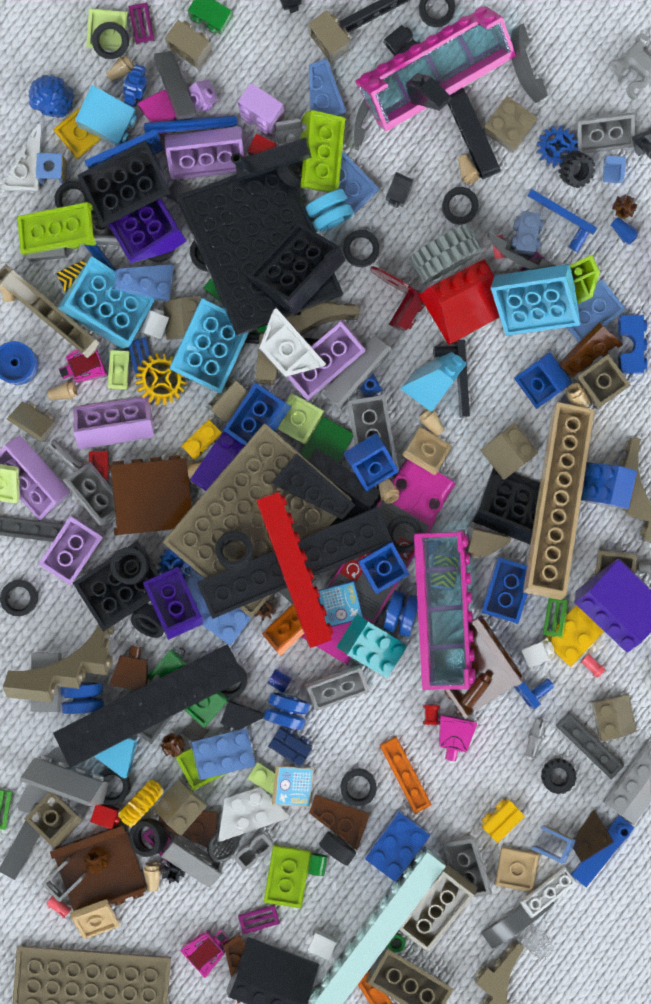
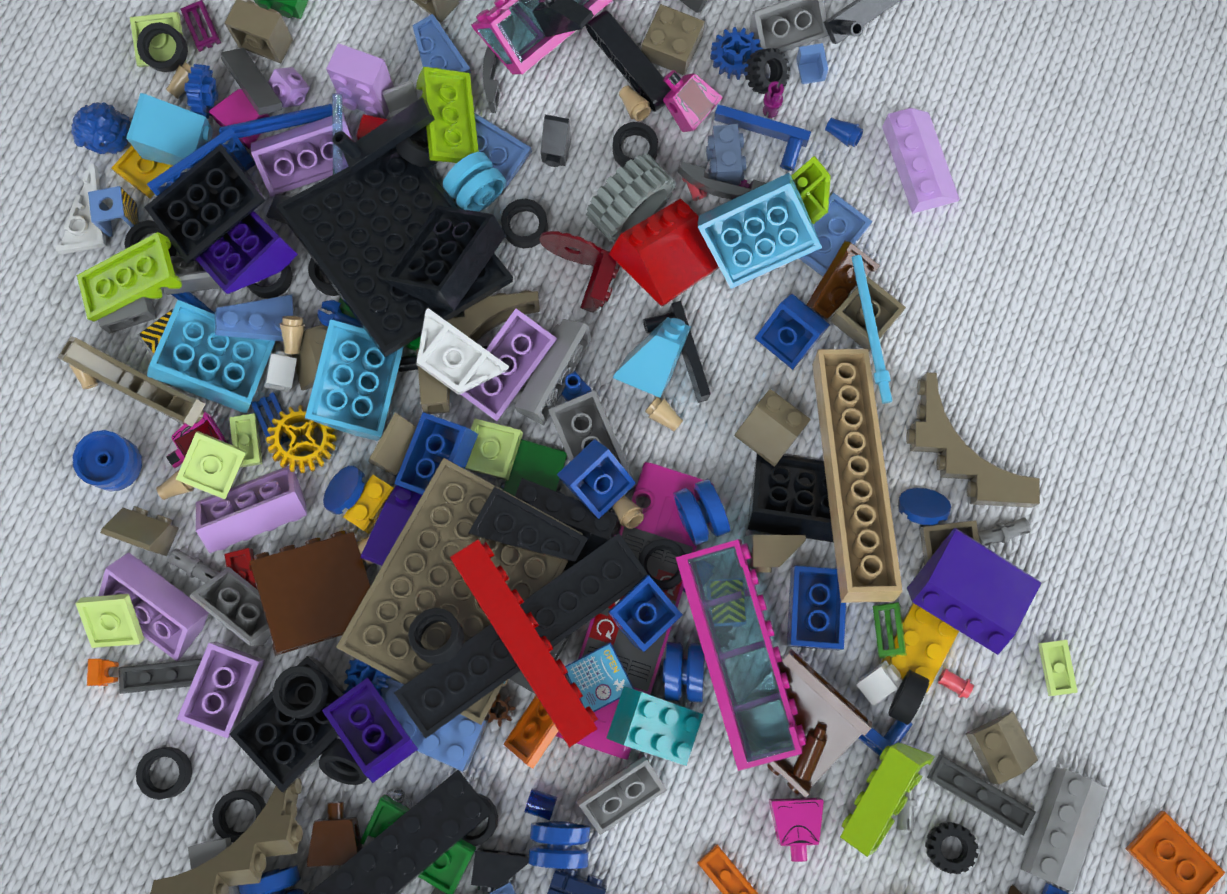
camera: 15 degrees left, 10 degrees down
(66, 625) = (221, 806): none -> black tyre
(92, 385) = (211, 465): none -> yellowish green plate
(170, 297) = (292, 333): none -> tan cone
(185, 425) = (344, 490): none -> blue tile
(206, 293) = (336, 315): none -> blue bar
(234, 147) = (337, 125): none -> clear light blue bar
(427, 450) = (666, 451): tan tile -> none
(431, 714) = (757, 802): red bush -> none
(439, 505) = (704, 511): none -> blue wheel
(510, 180) = (689, 99): none -> torso
(520, 730) = (884, 796): none -> lime wedge
(555, 667) = (908, 697): none -> black tyre
(577, 395) = (841, 337): tan brick -> none
(578, 194) = (773, 99): none -> magenta pin
(598, 434) = (882, 375): none -> medium azure bar
(604, 534) = (924, 506): none -> blue tile
(608, 485) = (915, 437): blue brick -> none
(624, 206) = (840, 96): reddish brown gear -> none
(633, 328) = (888, 242): blue arch -> none

